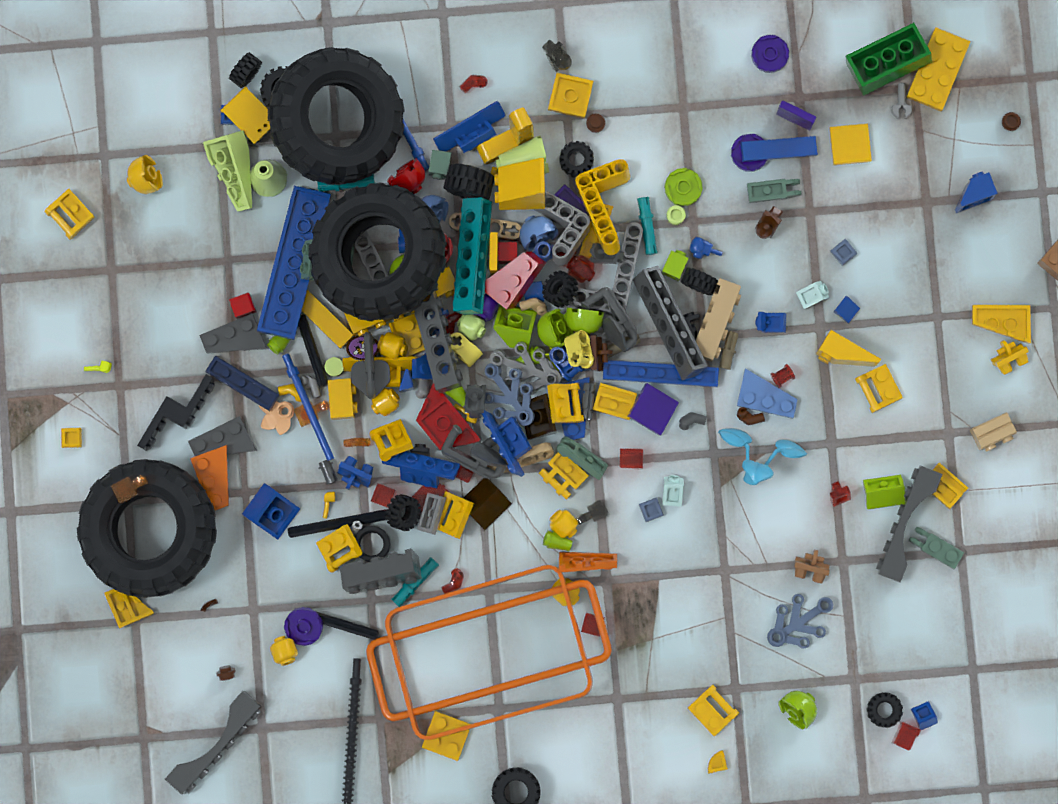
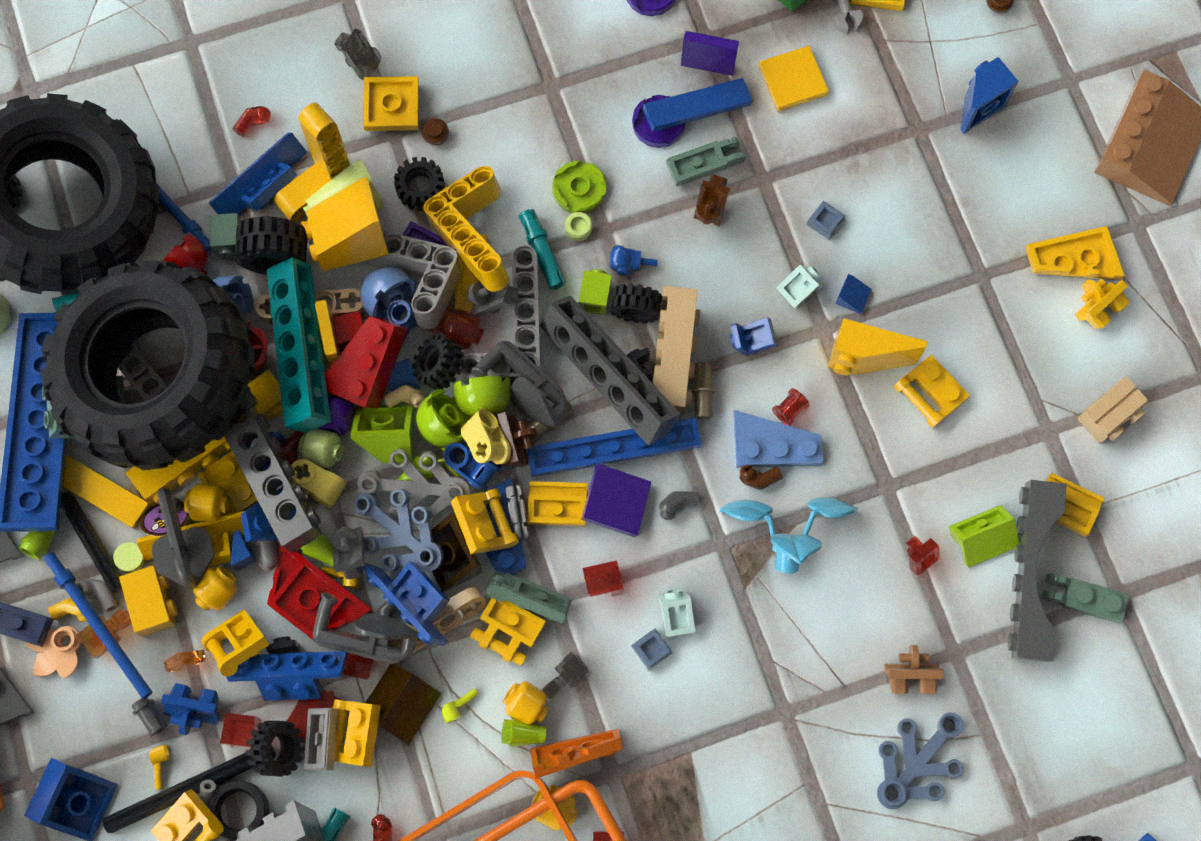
camera: 20 degrees left, 10 degrees down
(515, 516) = (450, 710): none -> neon yellow hand

